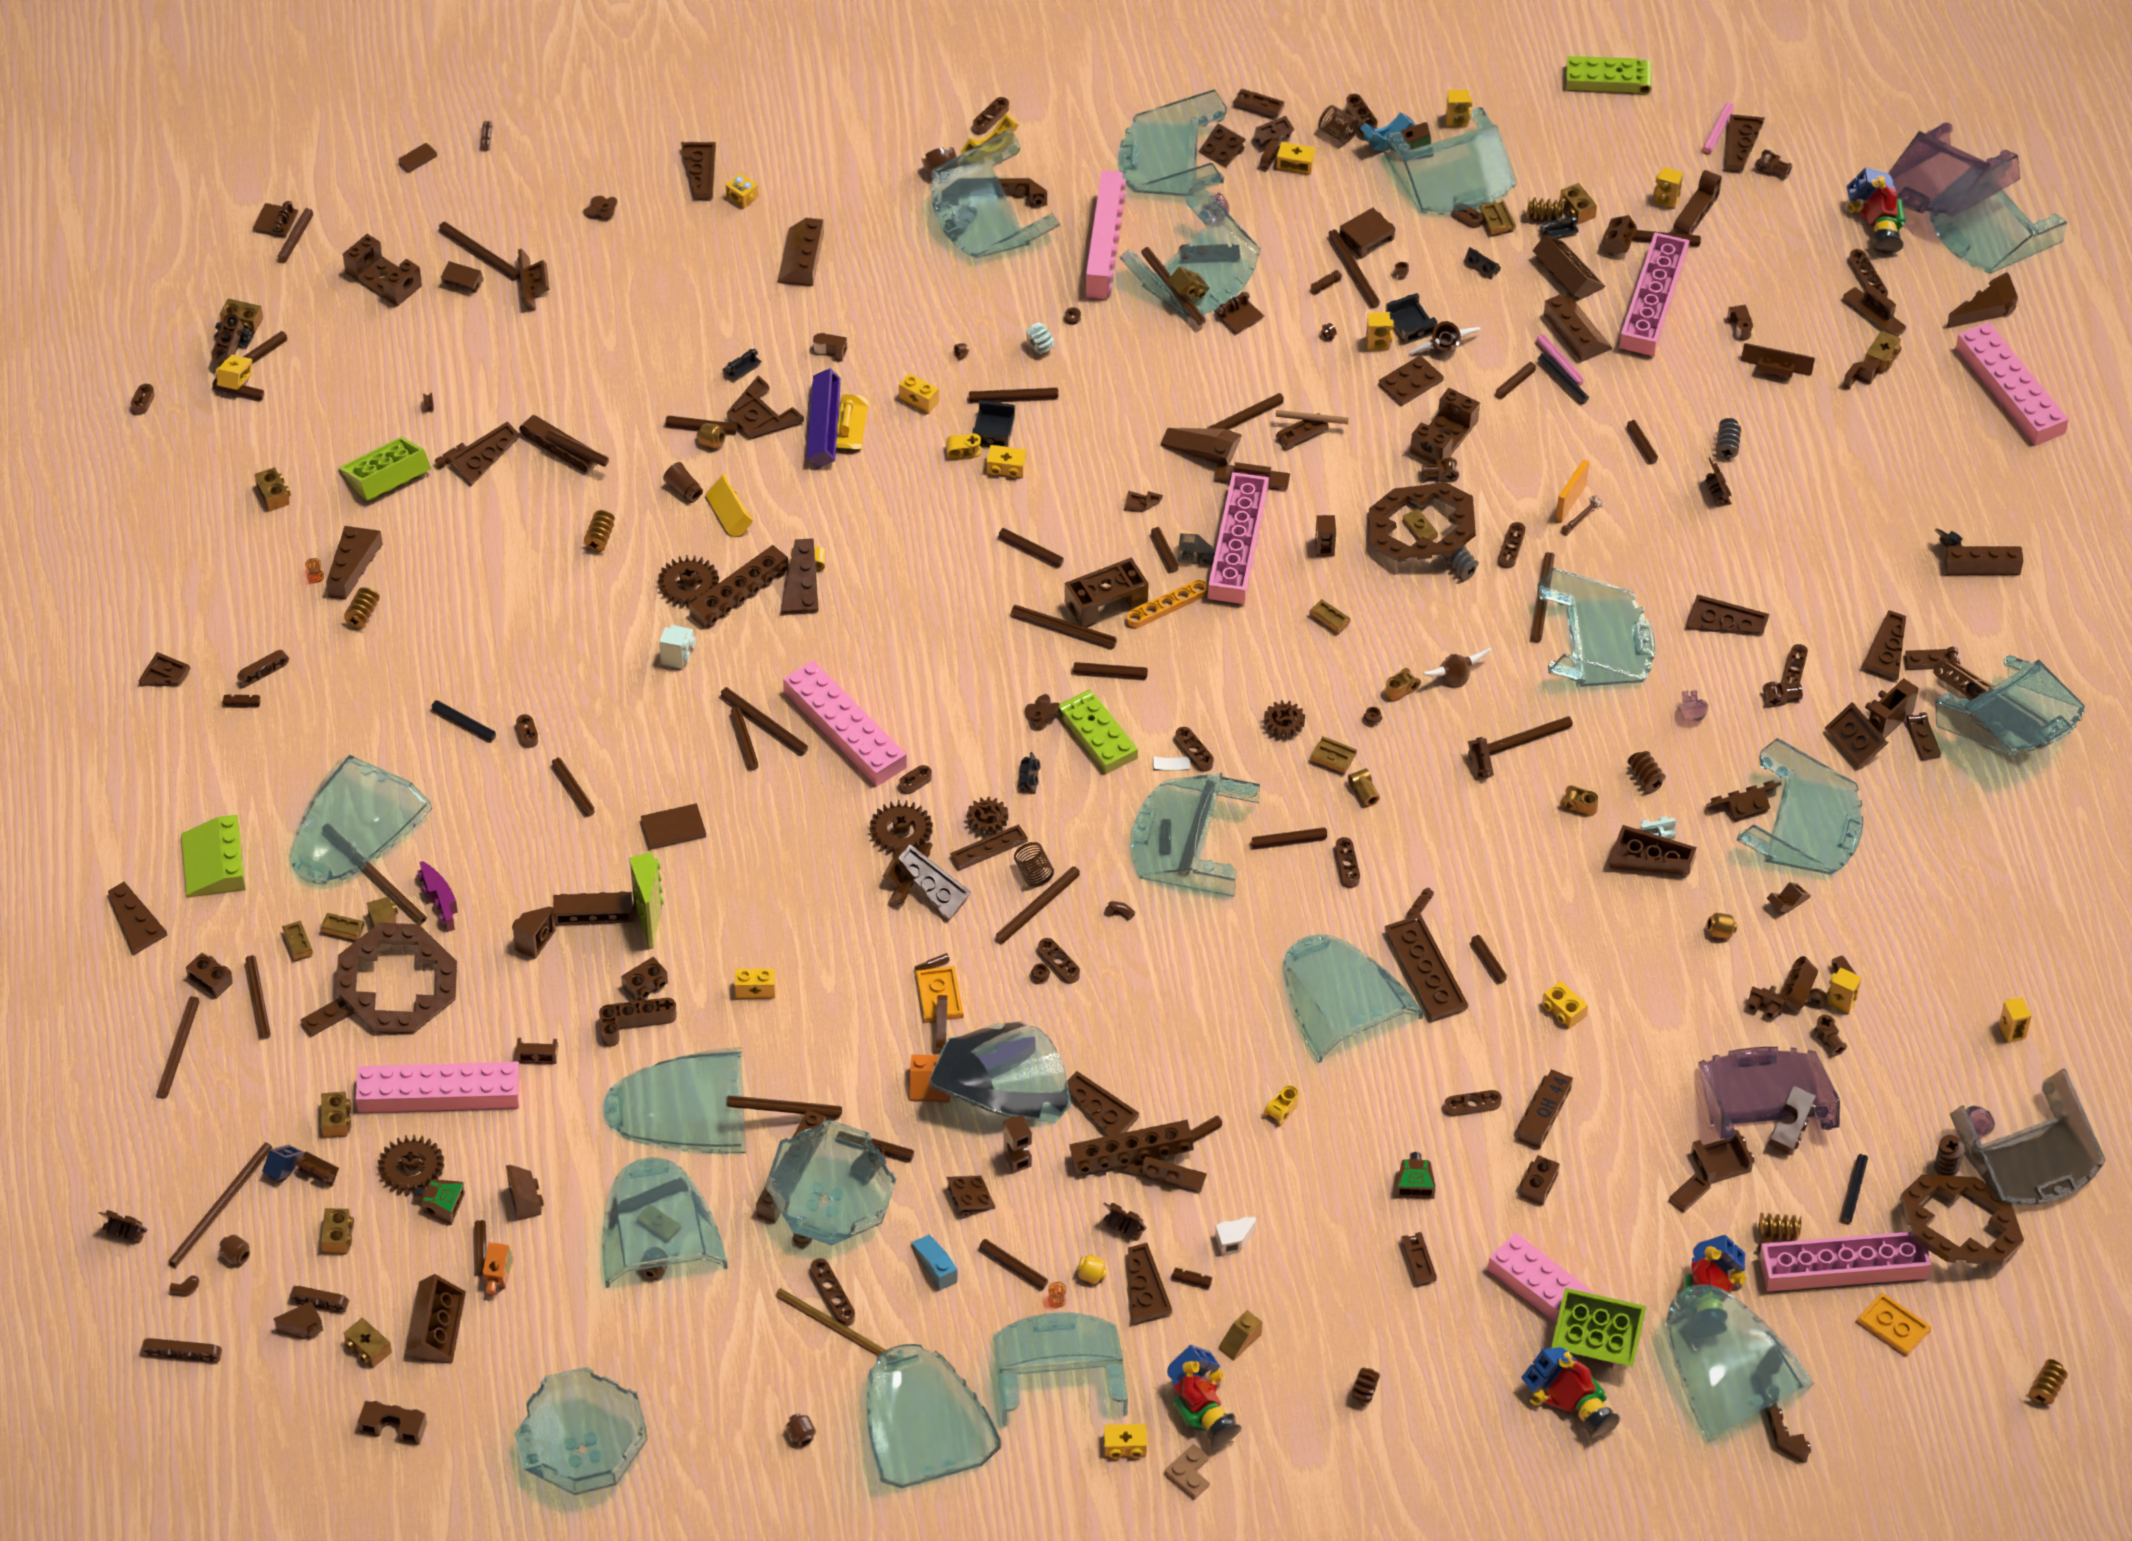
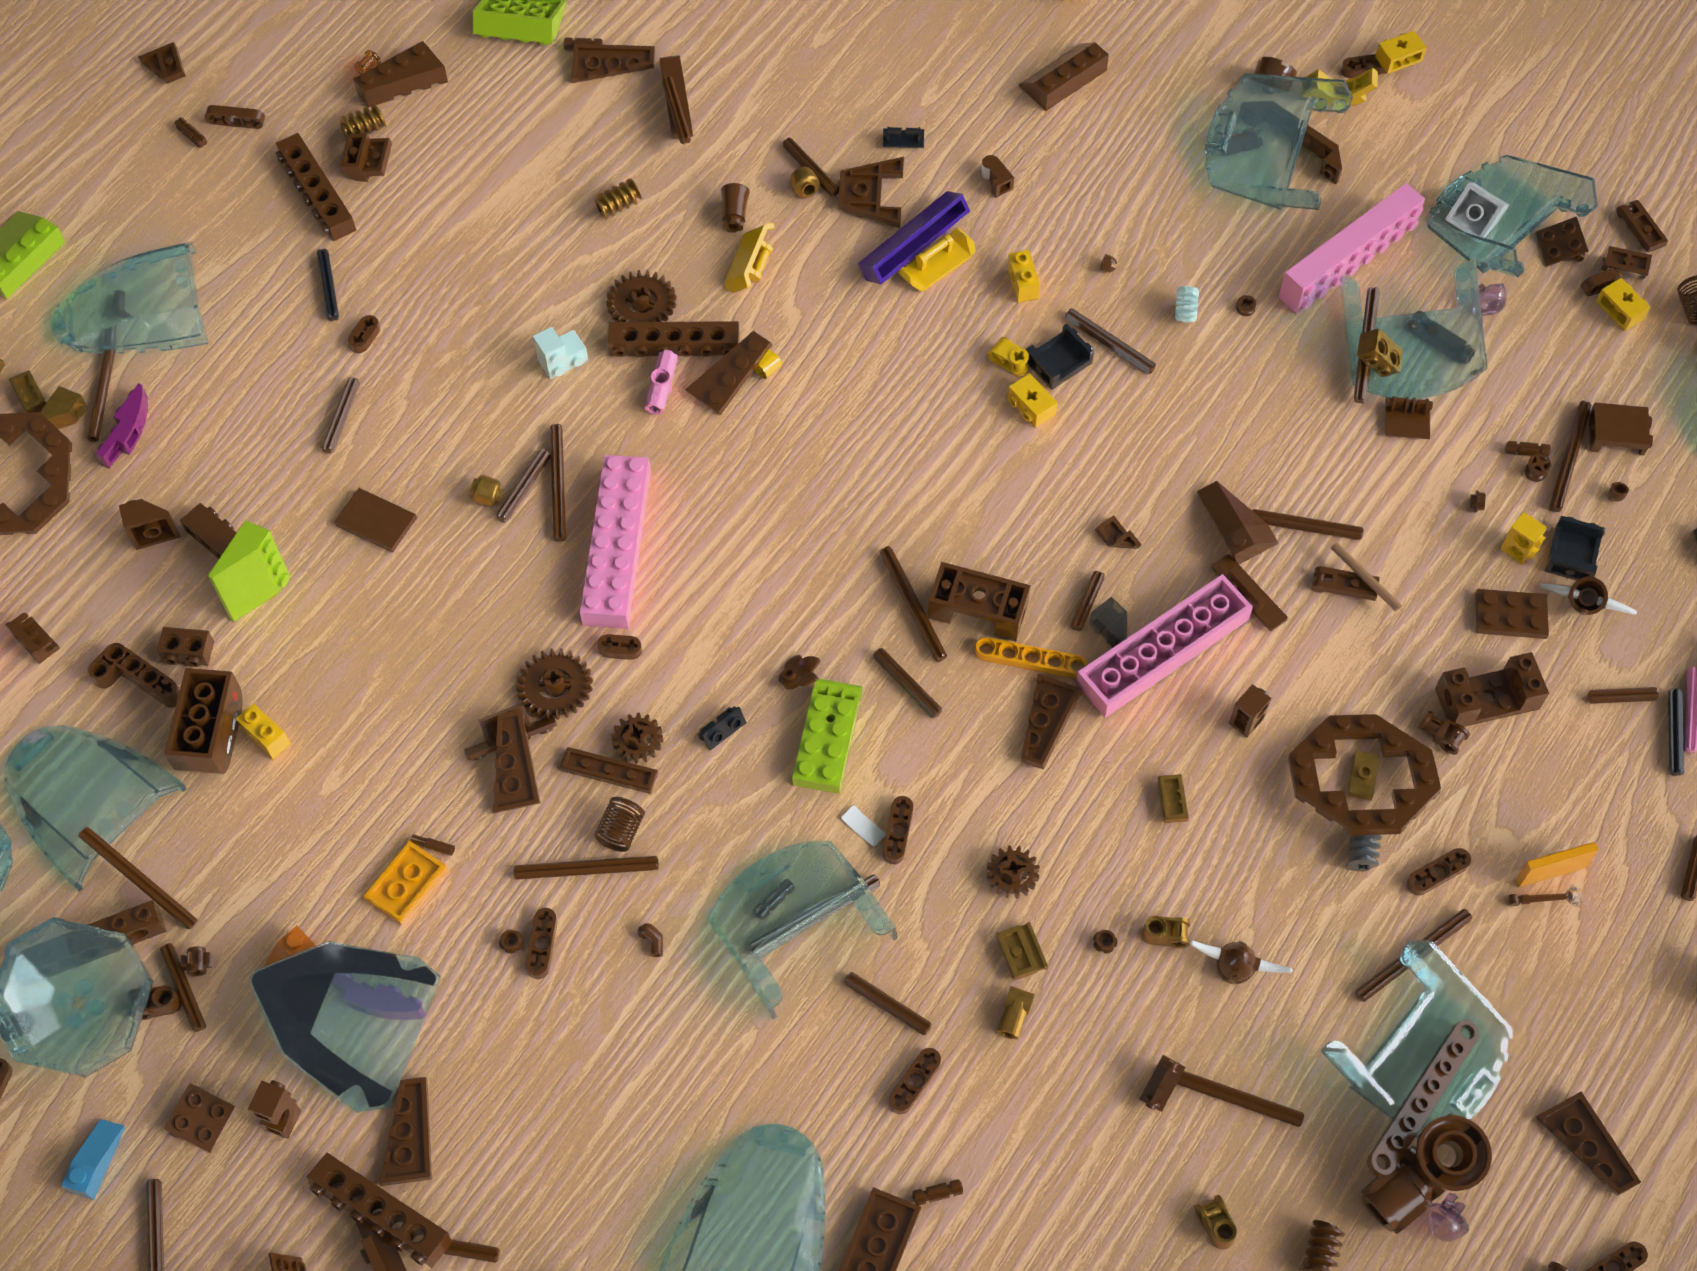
camera: 45 degrees right, 10 degrees up
(379, 668) = (315, 186): none -> reddish brown brick
(393, 625) = (365, 156): none -> reddish brown brick
(721, 997) = (204, 722): none -> reddish brown brick
(726, 756) = (486, 490): none -> pearl gold head
(762, 617) = (663, 373): none -> bright pink piece
(870, 1122) = (196, 961): none -> reddish brown gear
(941, 1026) = (366, 914): reddish brown beam -> none
(1005, 93) = (1400, 52): none -> yellow brick
(1031, 547) = (967, 501): reddish brown axle -> none
(1155, 160) = (1476, 211): none -> white slope
(1213, 627) = (1049, 714): none -> reddish brown wing
(1343, 287) = (1541, 463): none -> reddish brown wheel
(1623, 655) = (1423, 1098): none -> plate
(1667, 665) = (1421, 1176): none -> reddish brown piece

